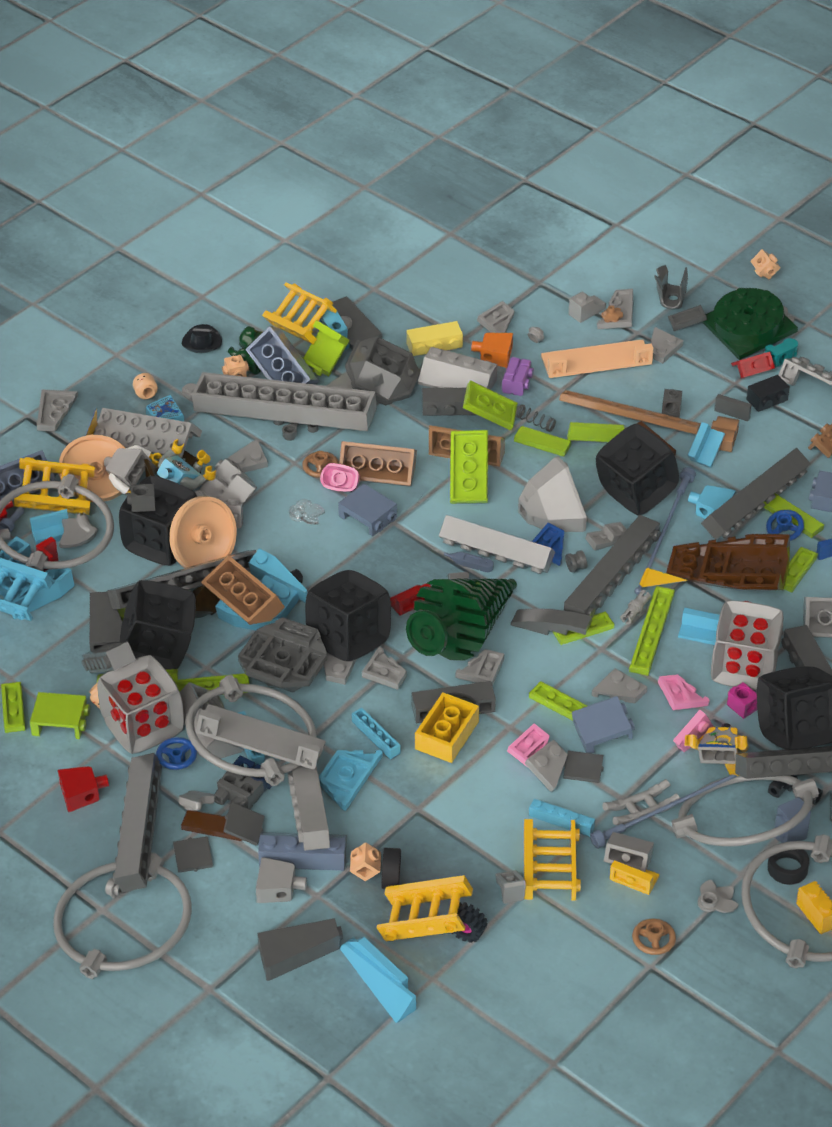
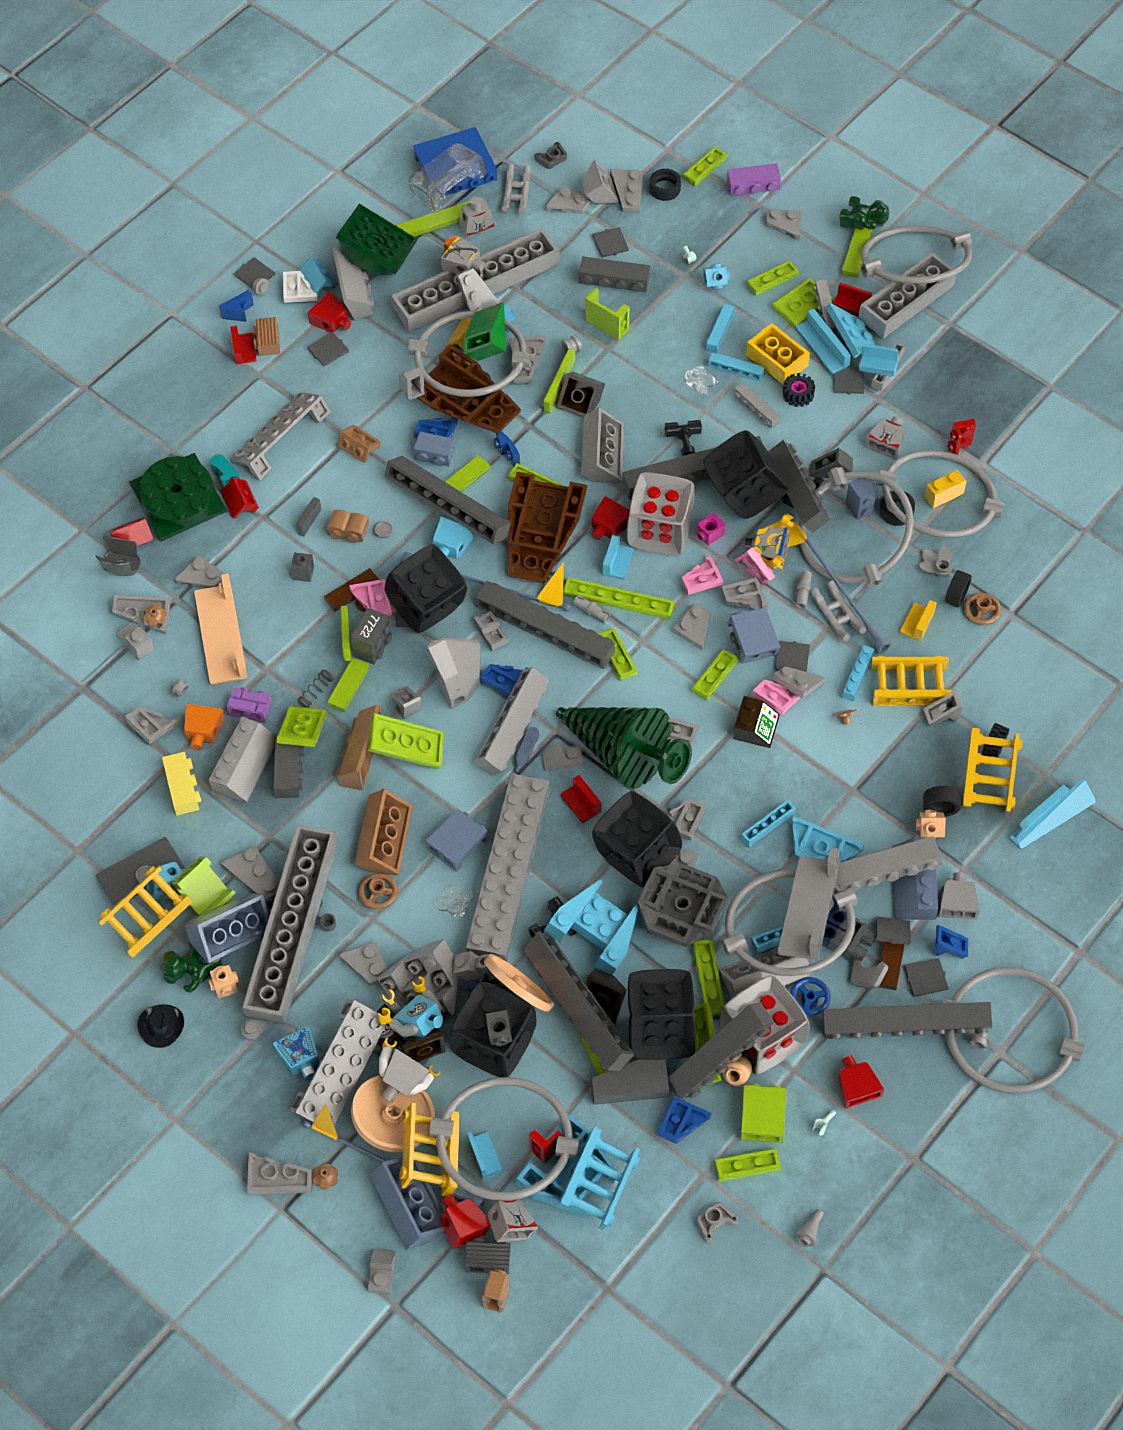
camera: 90 degrees left, 15 degrees up
(38, 761) = (822, 1123): none -> light aqua hand
(51, 439) = (326, 1180): none -> medium nougat plant
(62, 659) = (682, 1120): none -> blue wing
(77, 531) = (488, 1125): light grey arm -> none
(145, 386) = (247, 1076): light nougat head -> none
(224, 865) = (950, 942): none -> blue slope
(243, 592) = (613, 936): medium nougat slope -> none
(297, 945) = (1032, 880): dark grey slope -> none
(336, 543) = (508, 866): none -> light grey brick
(340, 478) = (411, 866): bright pink piece -> none
(383, 369) = (238, 829): dark grey piece -> none
(447, 727) = (763, 760): yellow brick -> none
(476, 693) = (730, 778): dark grey arch -> none
(496, 726) = (755, 722): none -> dark brown slope
(507, 801) = (845, 715): none -> medium nougat plant
(517, 473) = (407, 701): none -> light grey slope
(553, 620) = (616, 673): dark grey slope -> none
(576, 561) = (531, 655): dark grey wheel -> none
(586, 442) = (371, 636): none -> dark grey brick
(629, 851) = (899, 620): light grey brick -> none
(630, 411) = (309, 606): medium nougat tile -> none
(659, 727) = (744, 594): none -> light grey wing
(669, 774) = (803, 589): none -> light grey pin
(675, 895) = (958, 588): none -> black tyre
(687, 318) = (162, 550): dark grey tile -> none
(702, 295) = (134, 531): none -> panel
(706, 445) = (370, 539): medium azure panel -> none
(726, 462) = (383, 529): none -> light grey piece
(765, 264) = (78, 472): light nougat brick -> none
(768, 393) = (292, 484): black brick -> none
(784, 523) = (482, 477): blue piece -> none

